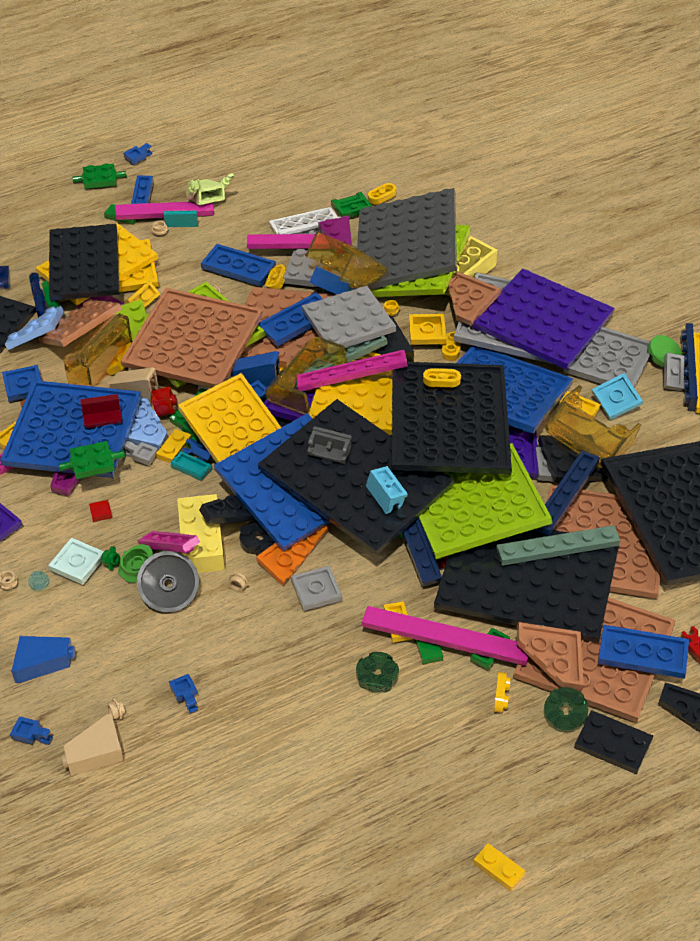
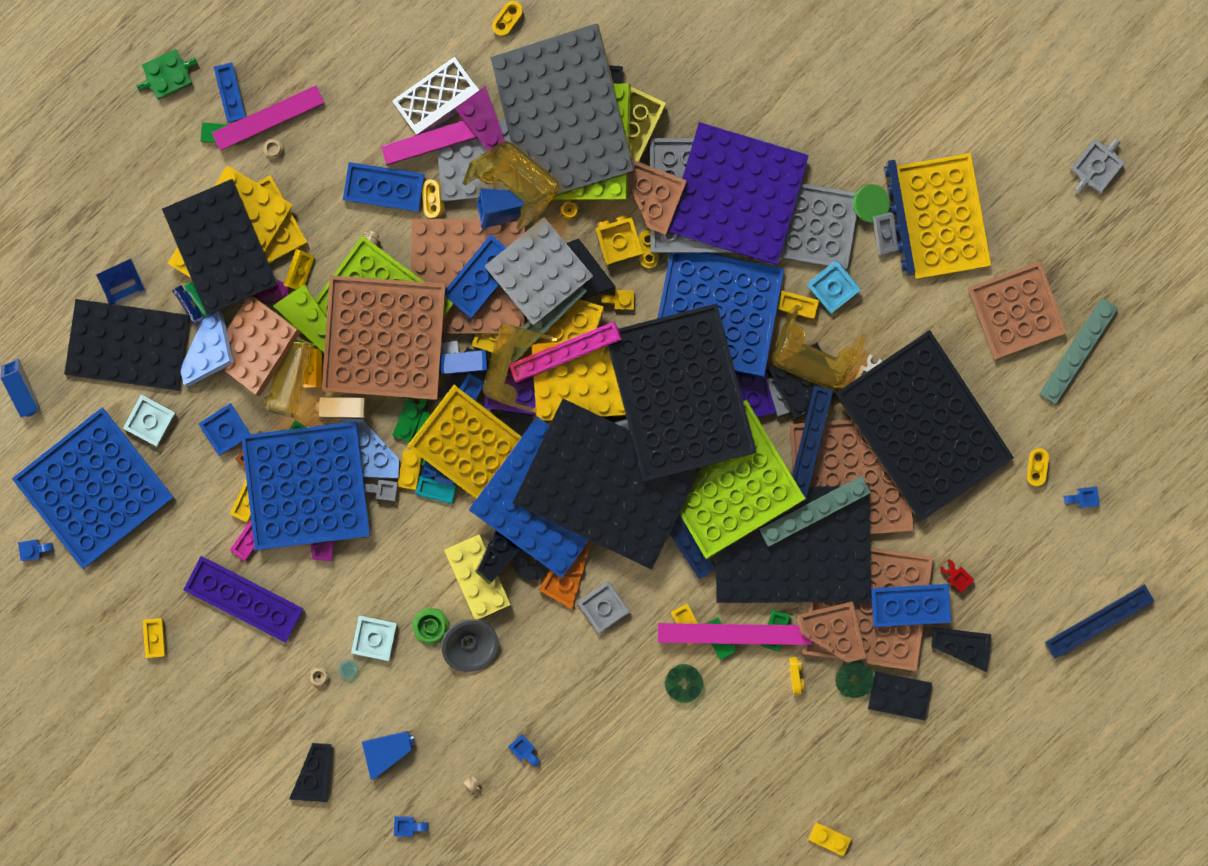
camera: 15 degrees left, 40 degrees up
(91, 460) = (346, 529): green plate -> none
(93, 748) = (470, 827): tan slope -> none
(100, 510) = (370, 570): red tile -> none
(101, 411) = (330, 466): dark red panel -> none
(110, 558) = (404, 627): green plate -> none
(137, 154) = (195, 24): blue plate -> none
(164, 401) = (381, 421): red brick -> none
(170, 541) = (455, 605): dark pink plate -> none
(181, 218) = (292, 128): teal tile -> none
(206, 190) = (305, 78): yellowish green torso -> none
(237, 582) = (530, 620): tan plate -> none
(329, 445) = (576, 470): dark grey hinge -> none
(350, 205) = (481, 53): green plate -> none
(386, 489) = (645, 507): medium azure hinge -> none
(441, 378) = (661, 350): yellow plate -> none

